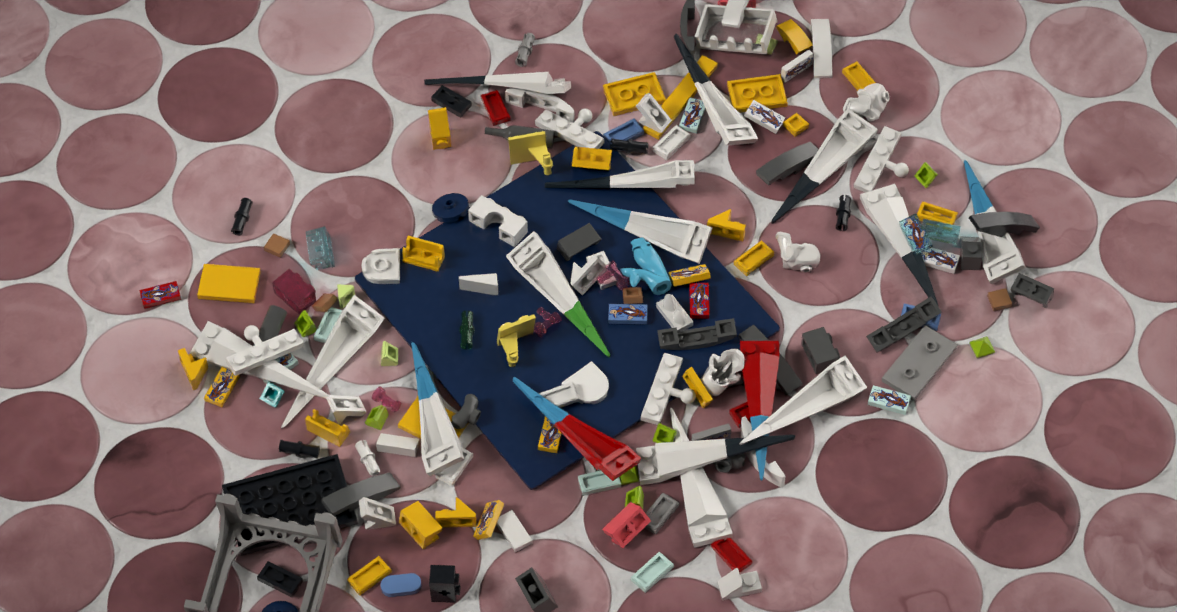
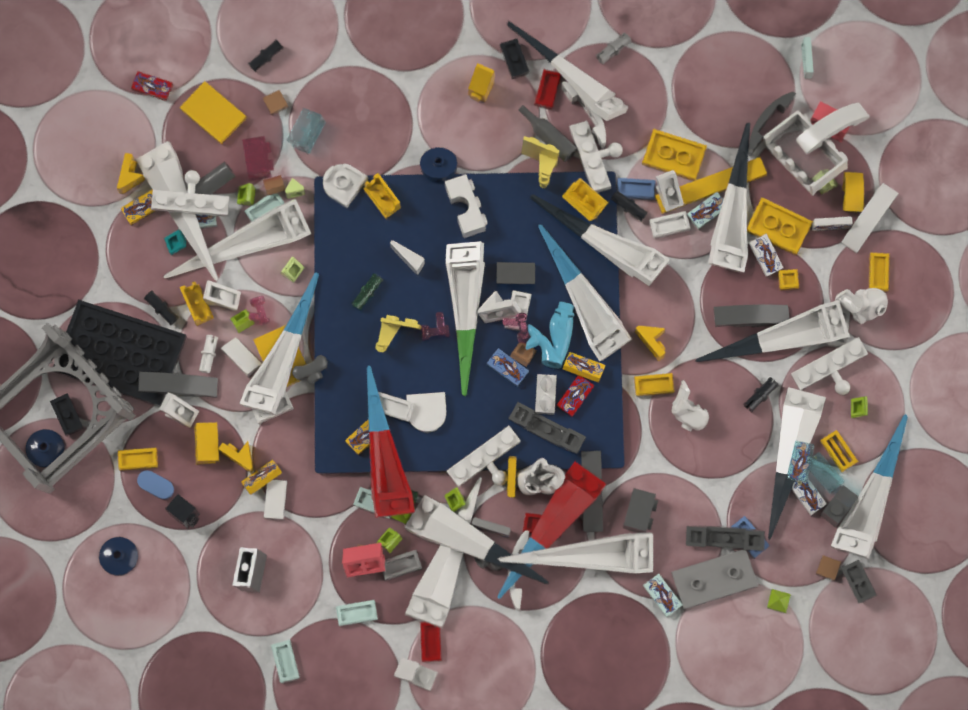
camera: 35 degrees right, 20 degrees up
(1001, 222) = (883, 503): black slope -> none

